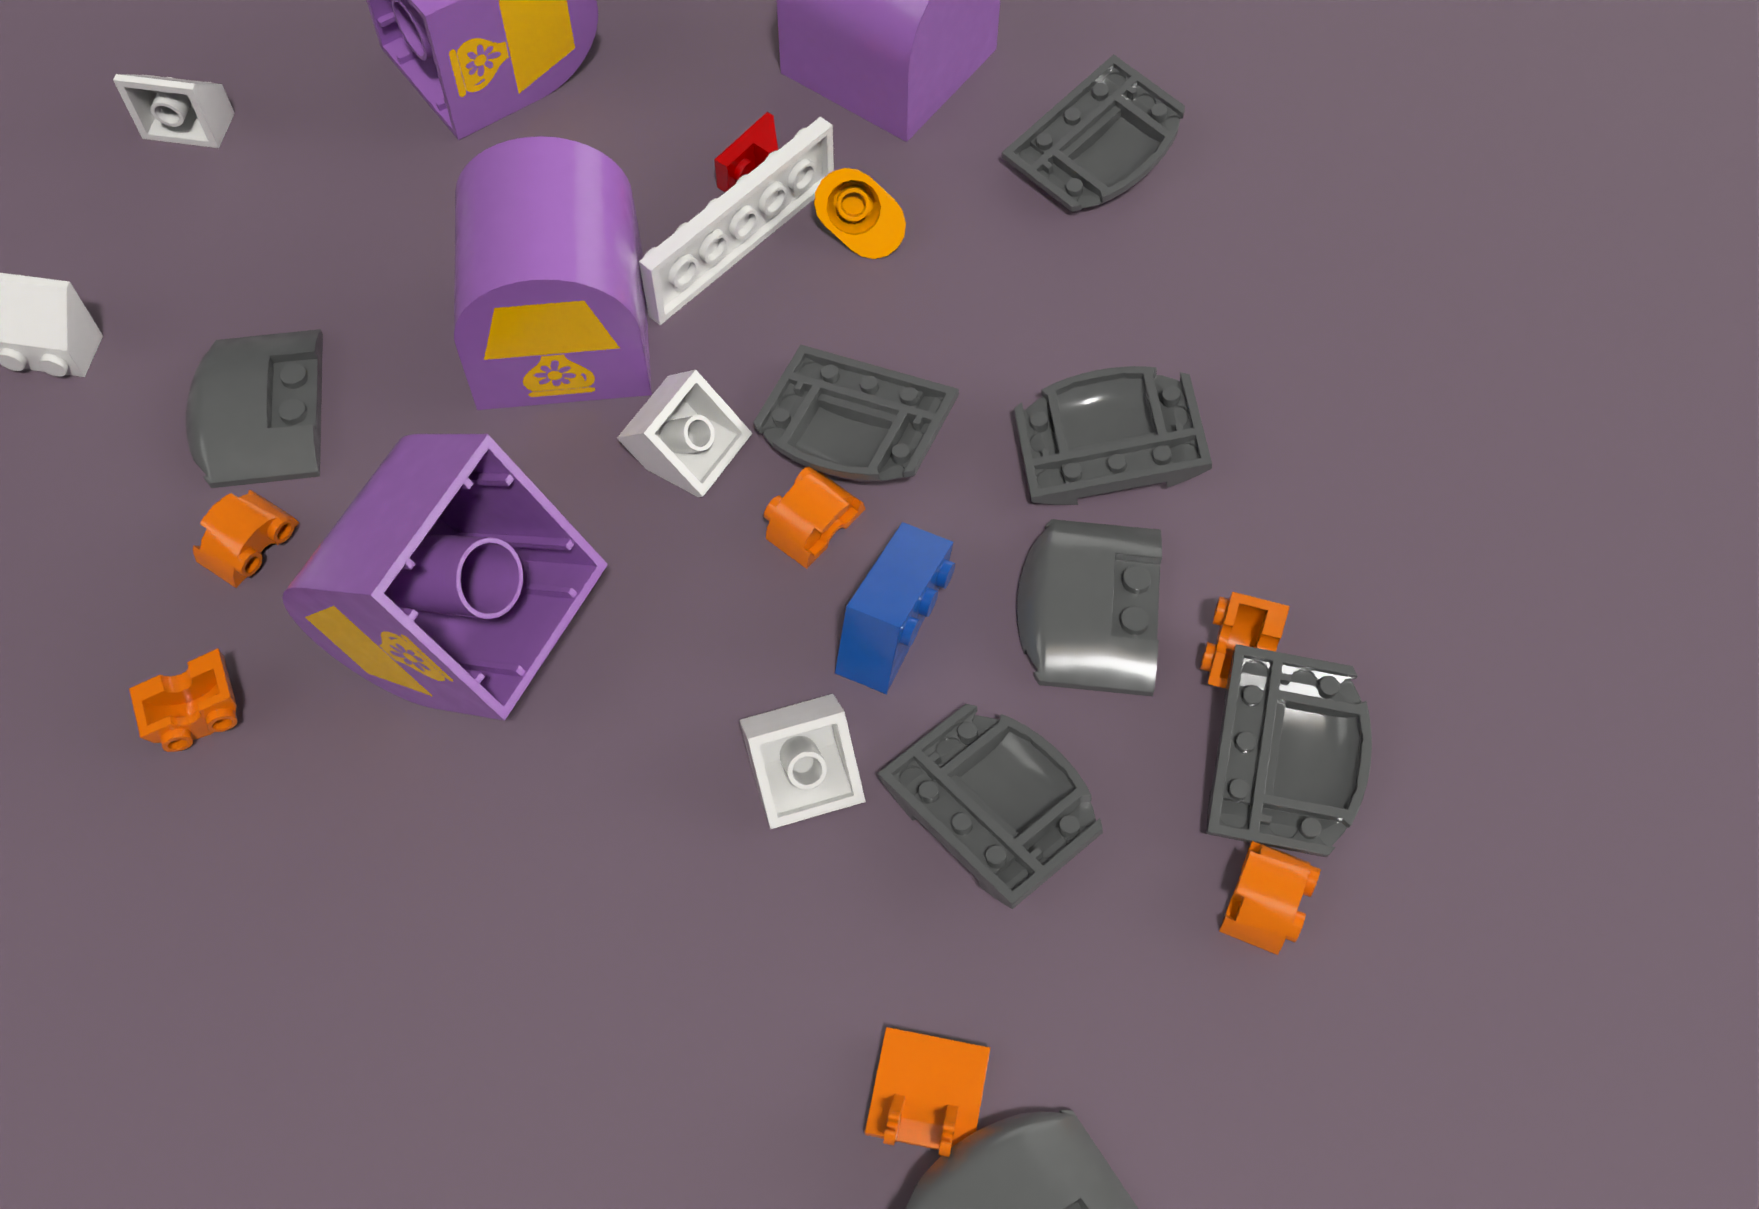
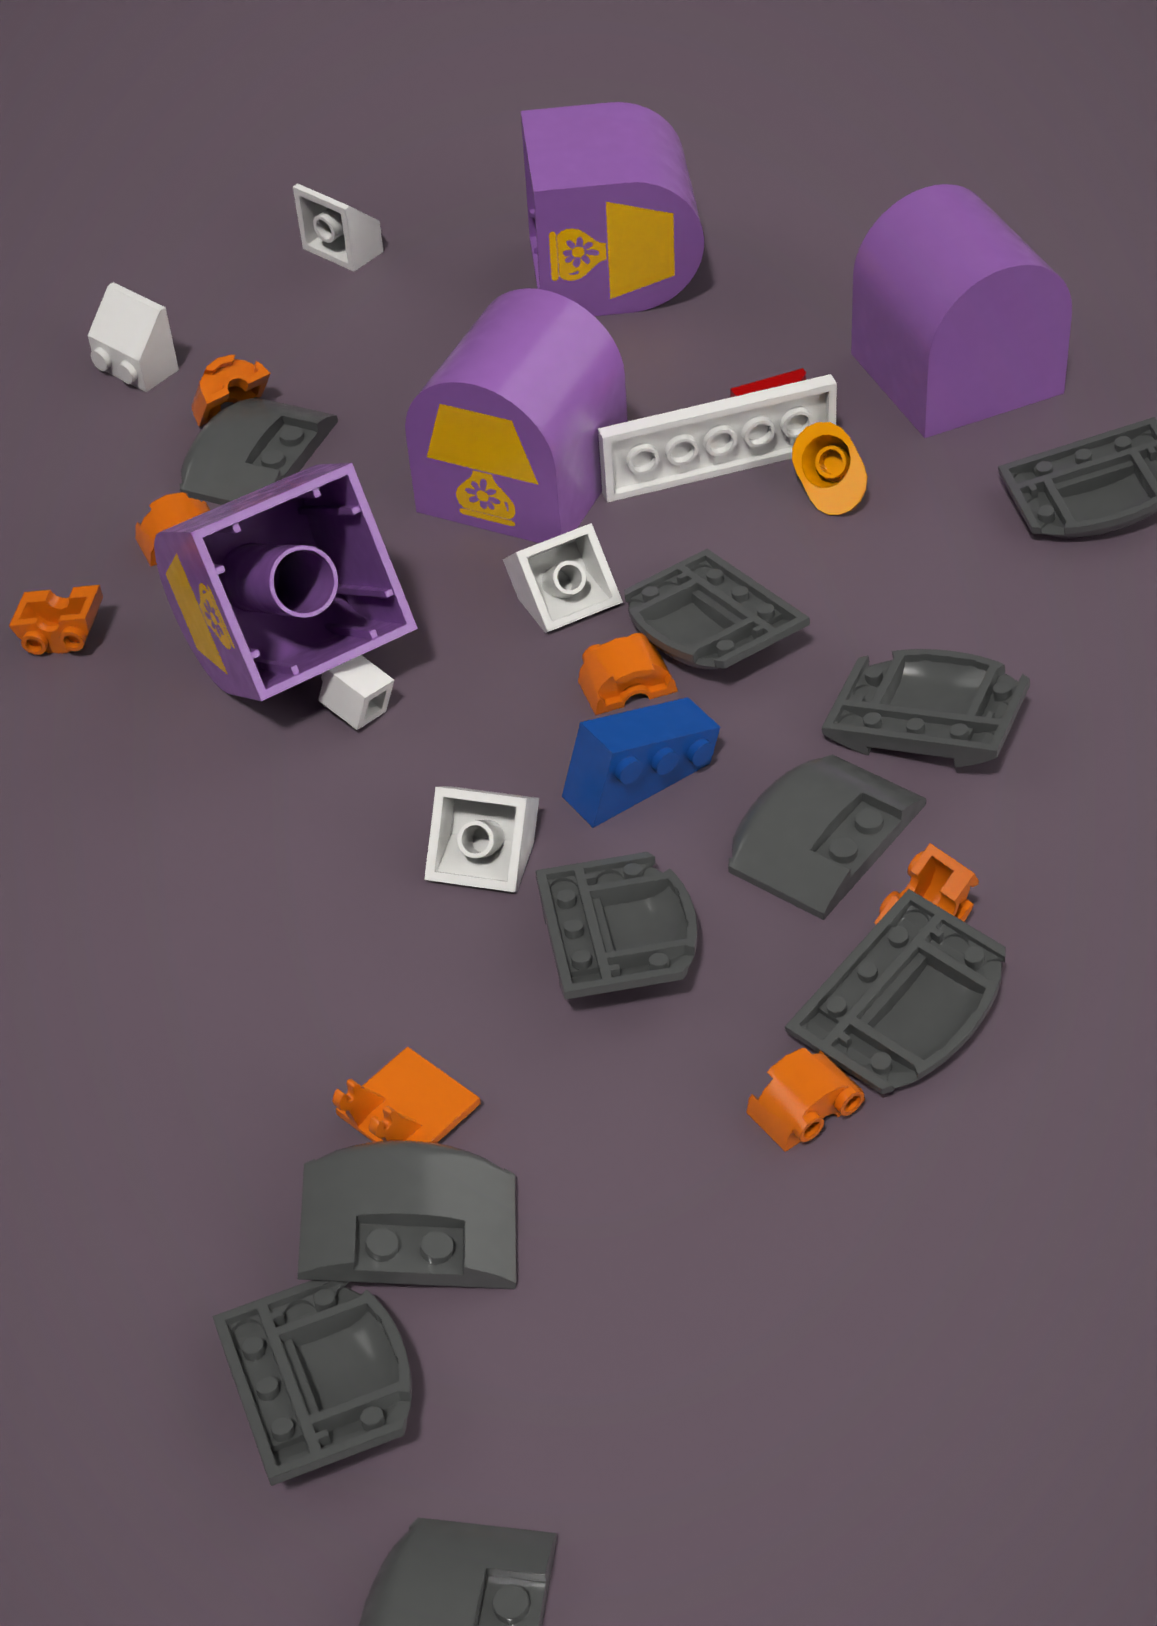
camera: 35 degrees right, 15 degrees down
(181, 344) = (227, 381): none -> orange cylinder
(575, 655) = (356, 691): none -> white brick

